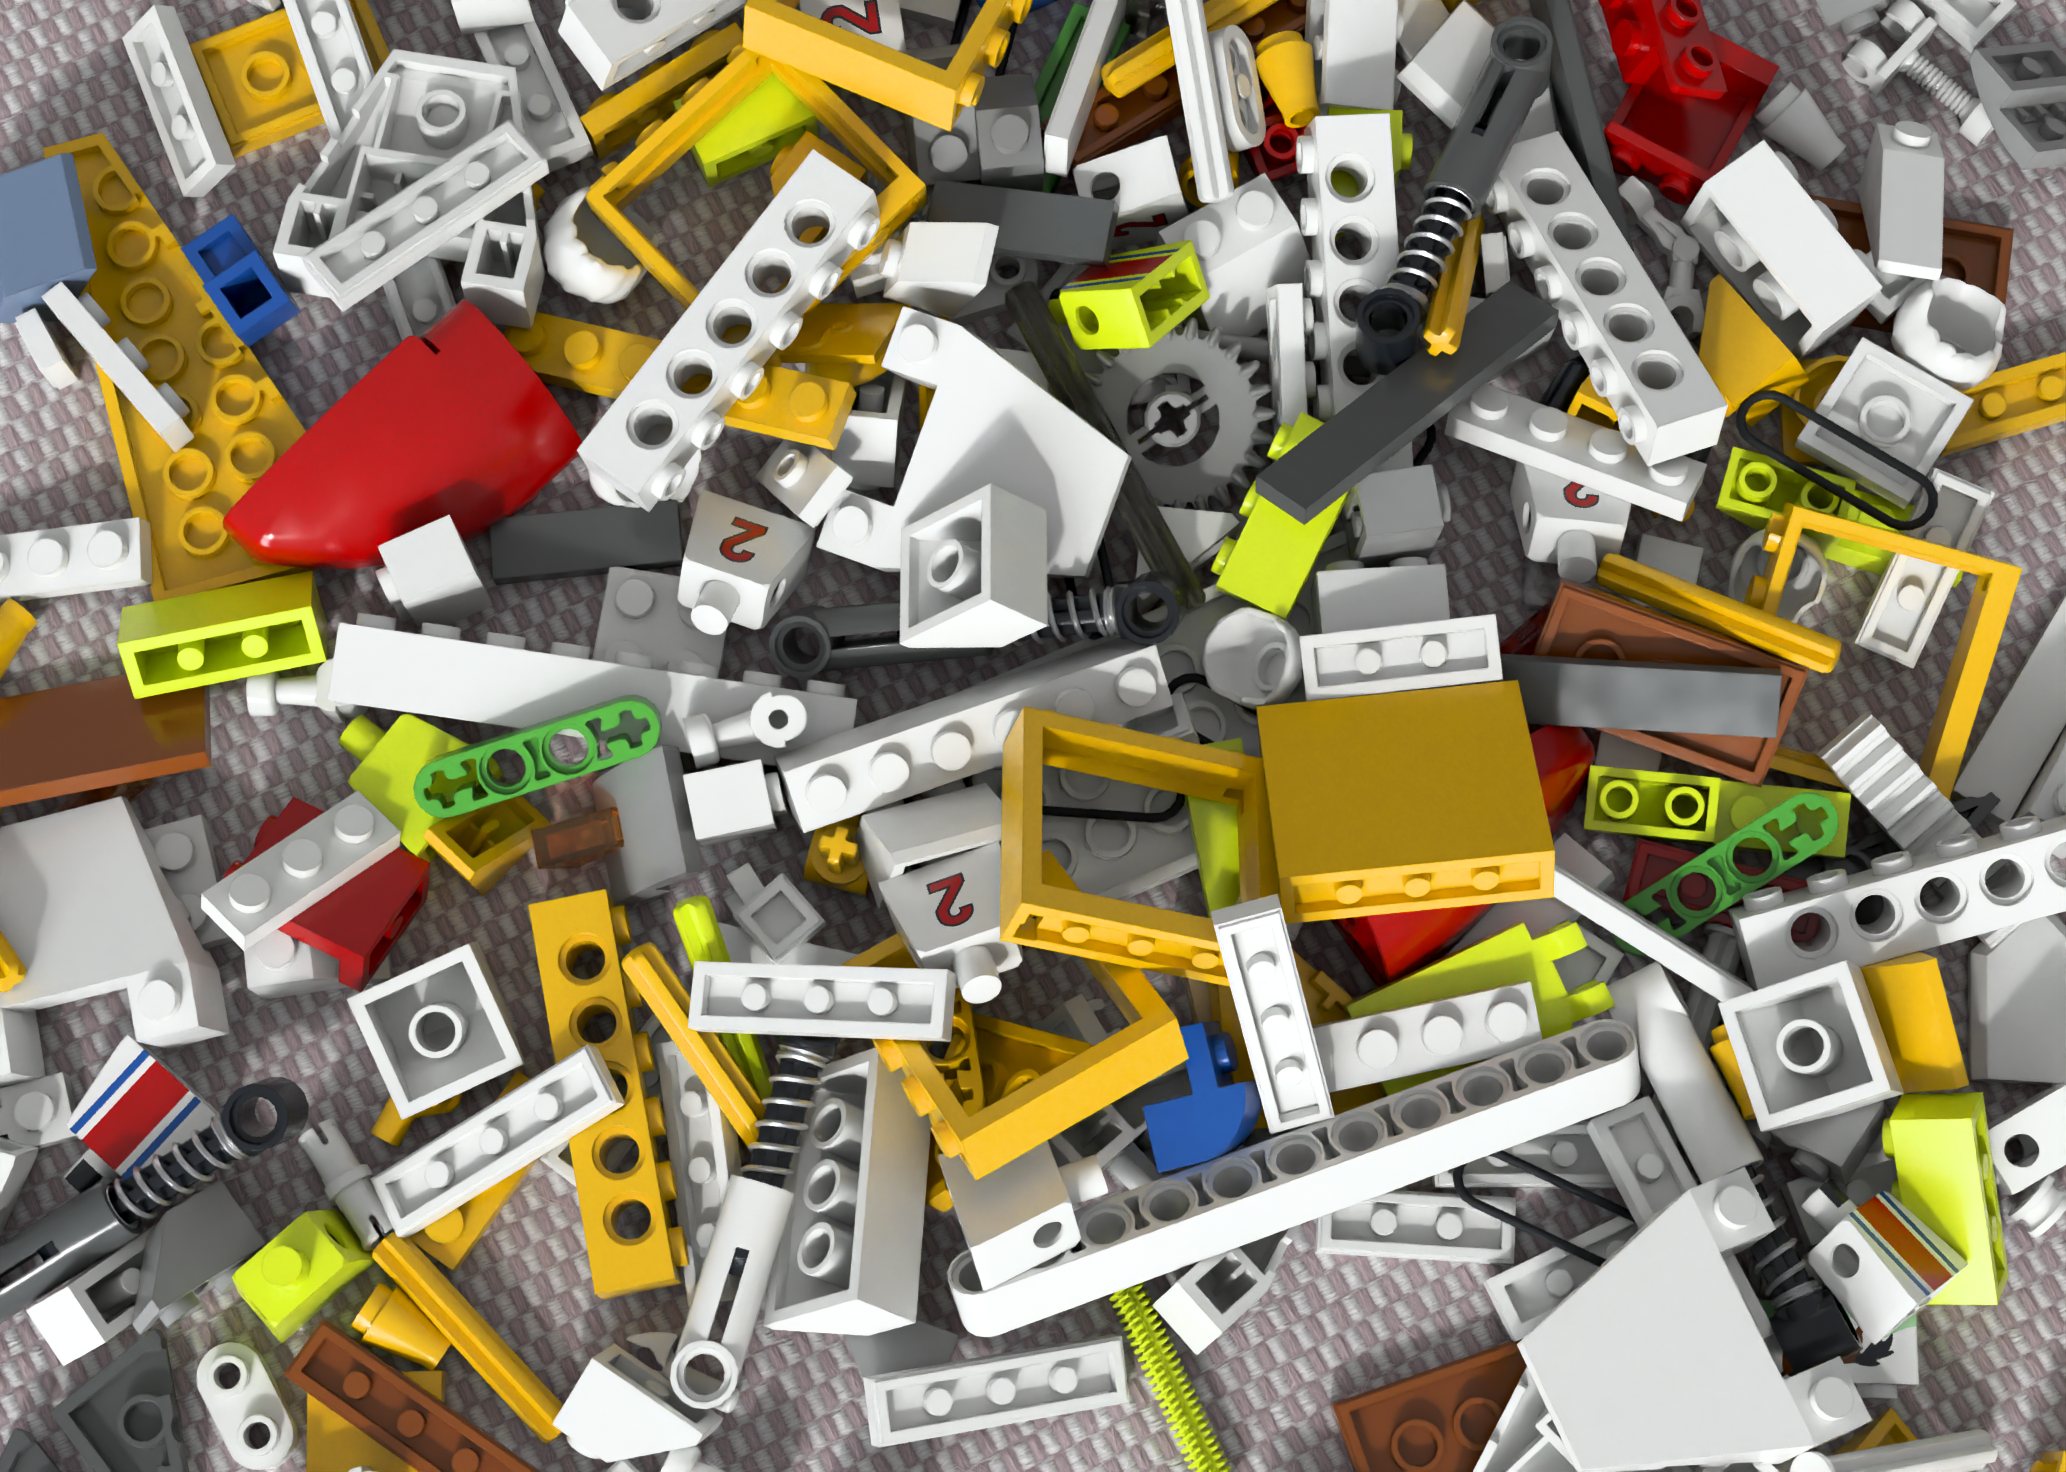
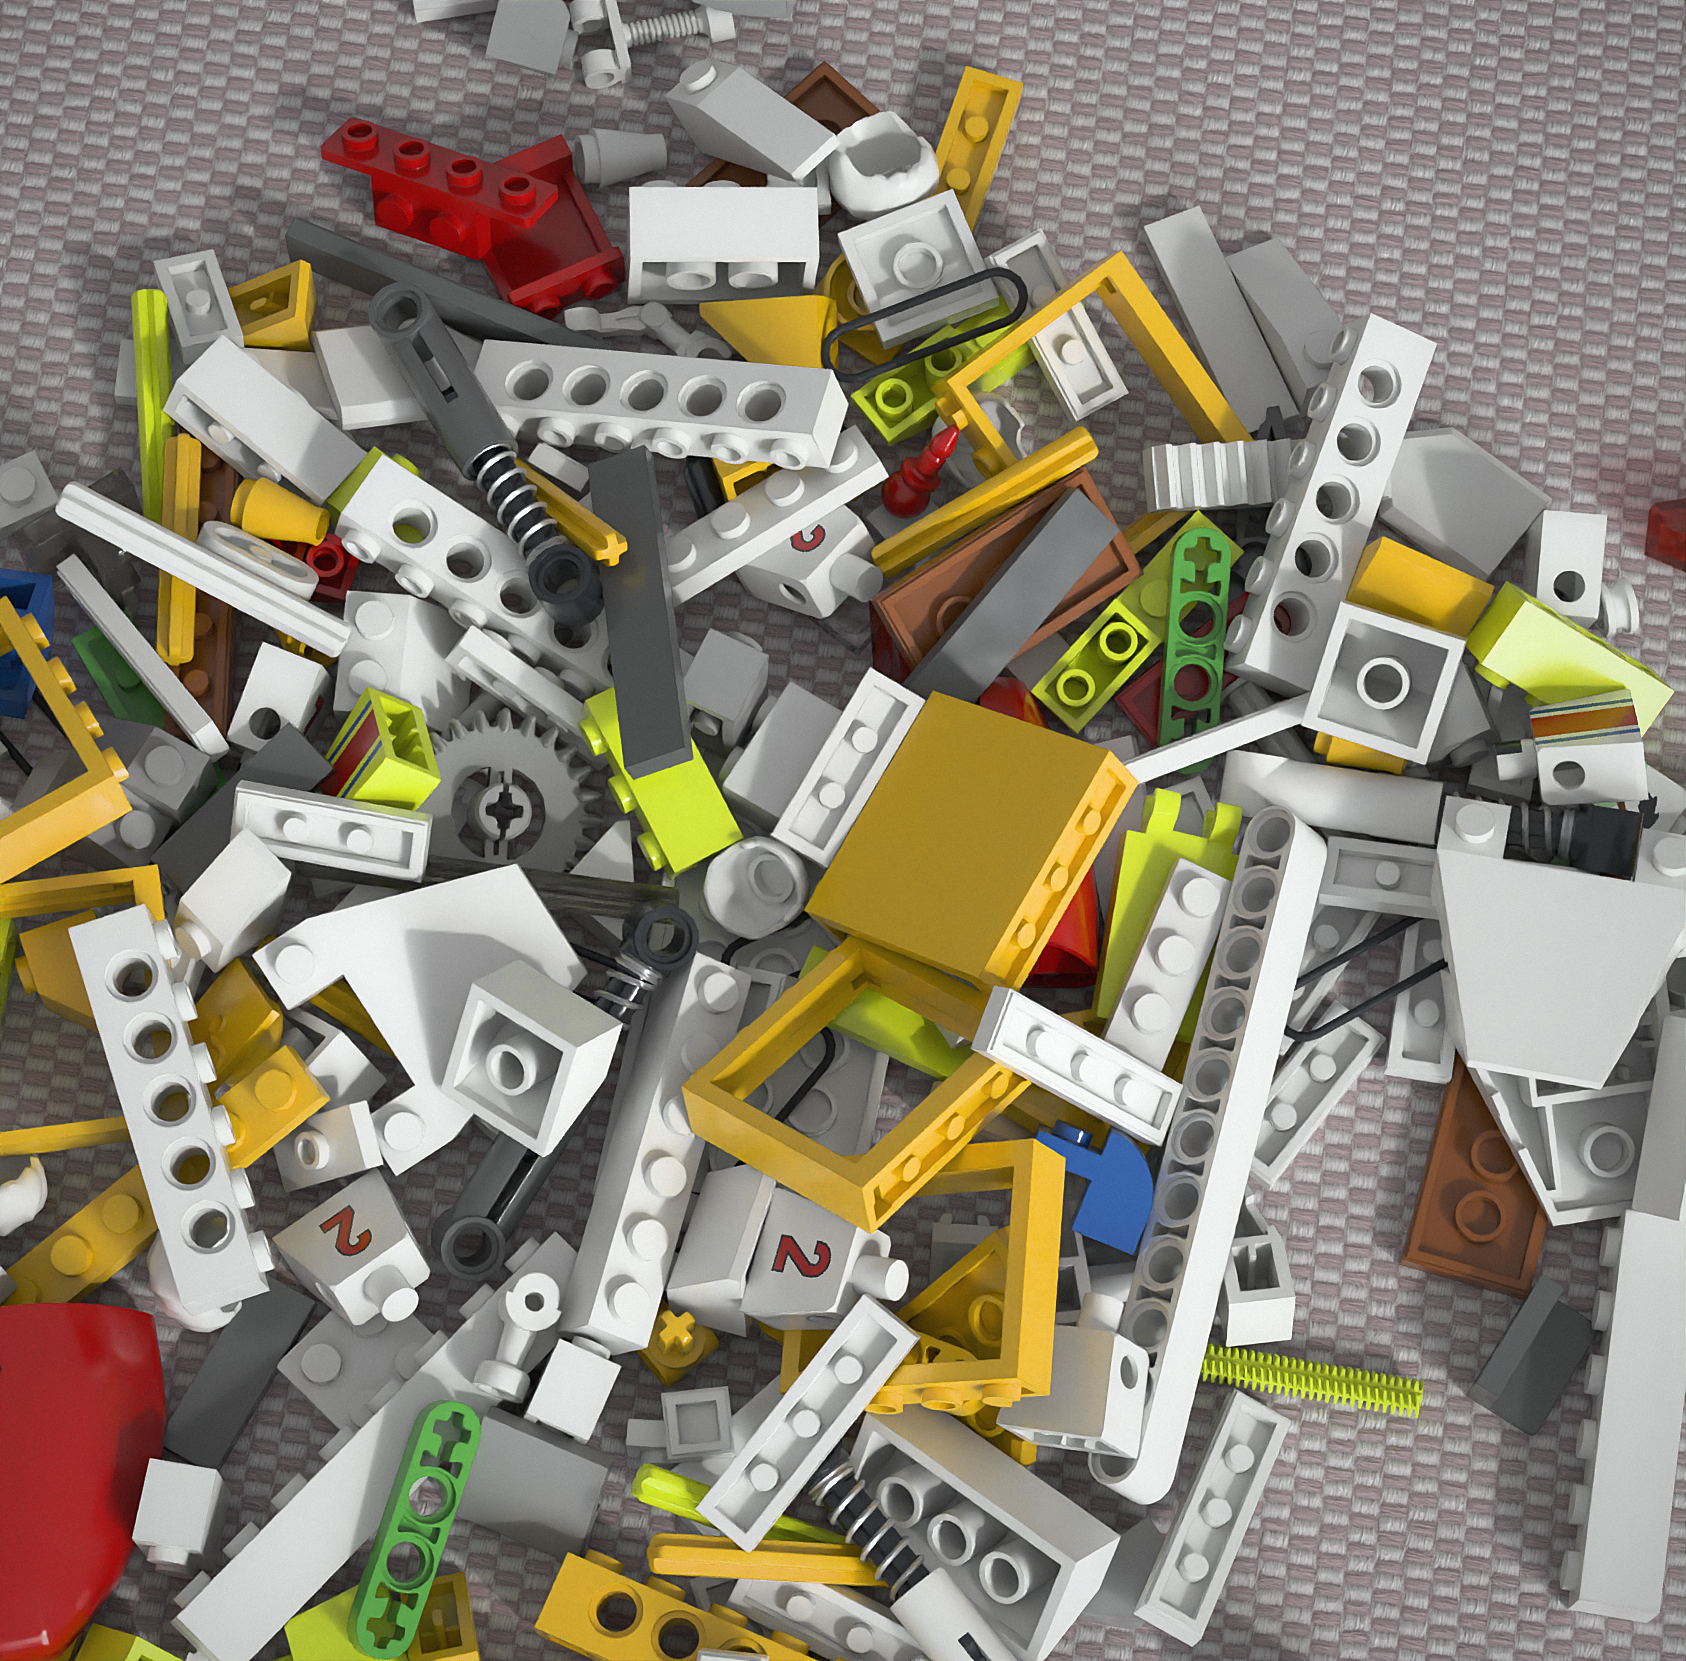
camera: 55 degrees left, 5 degrees down
(578, 840) = (500, 1552): clear orange piece -> none
(1050, 297) = (334, 830): none -> white tile
(1692, 549) = (909, 490): none -> red bar

